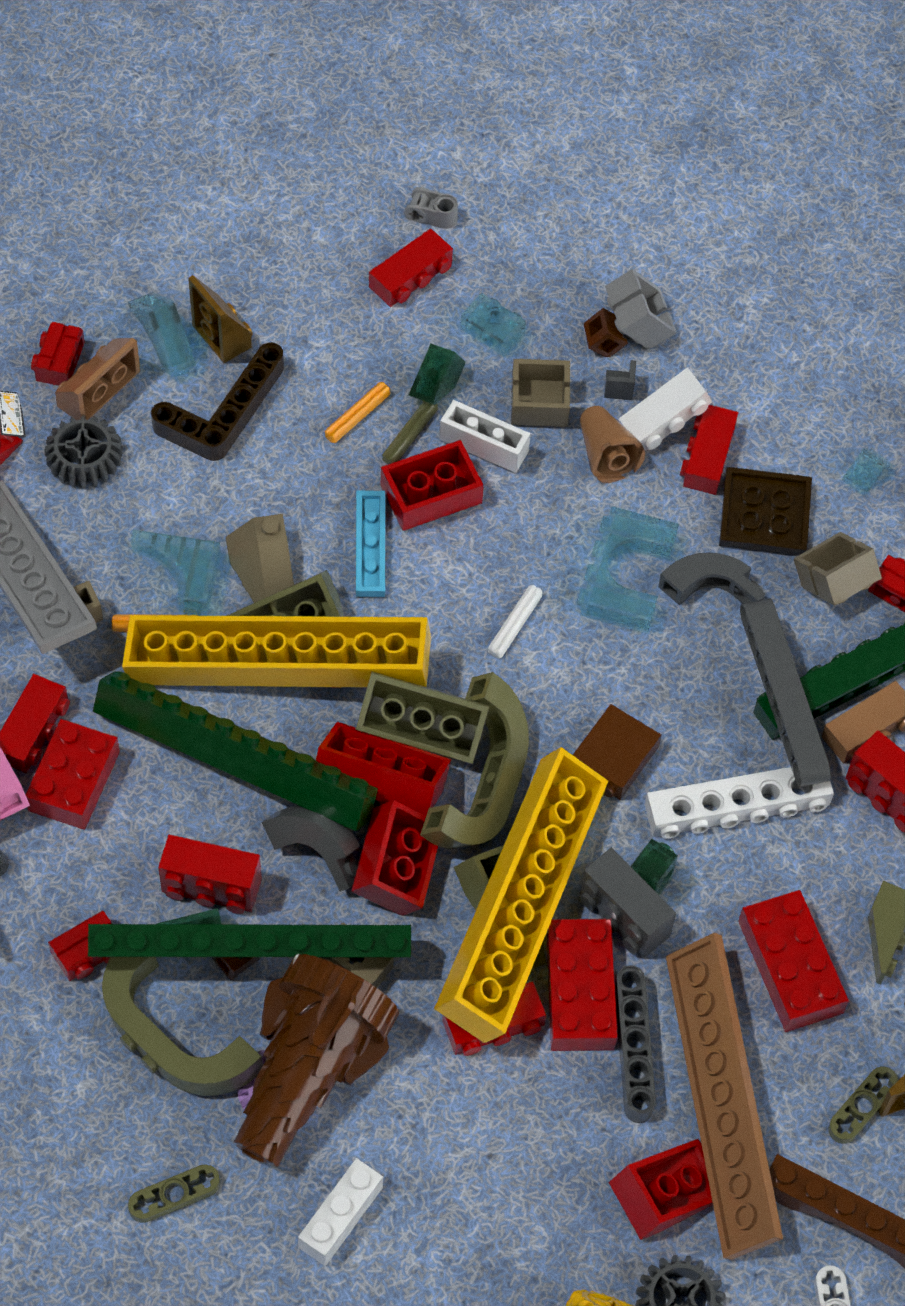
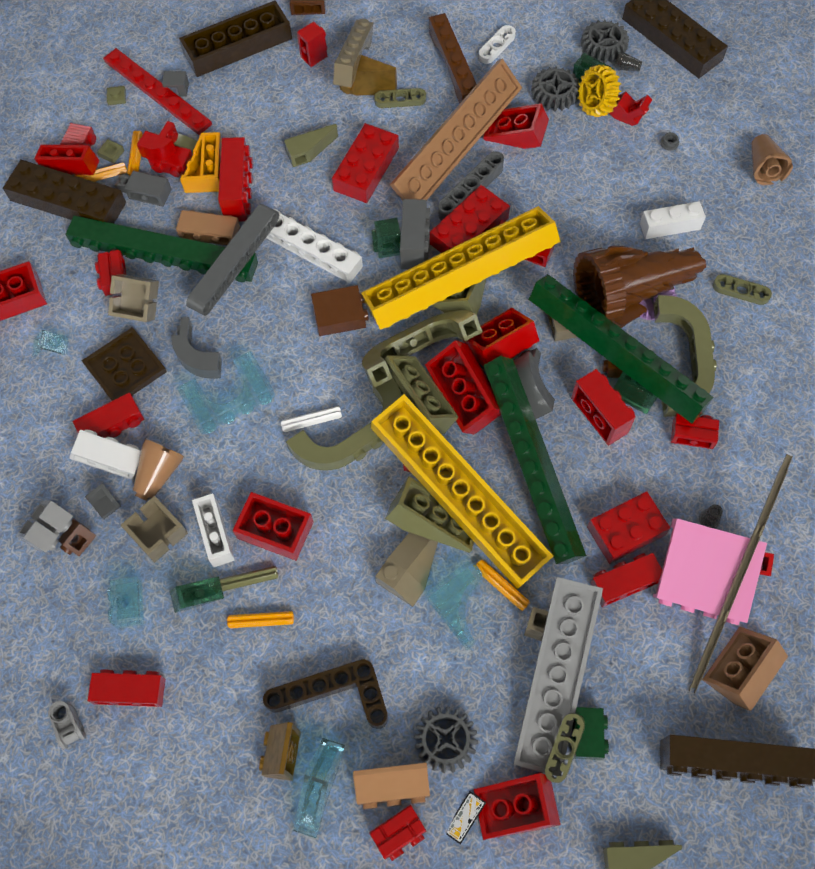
camera: 130 degrees left, 5 degrees up
(370, 543) = (339, 527): medium azure plate -> none
(460, 586) = (350, 449): none -> olive arch

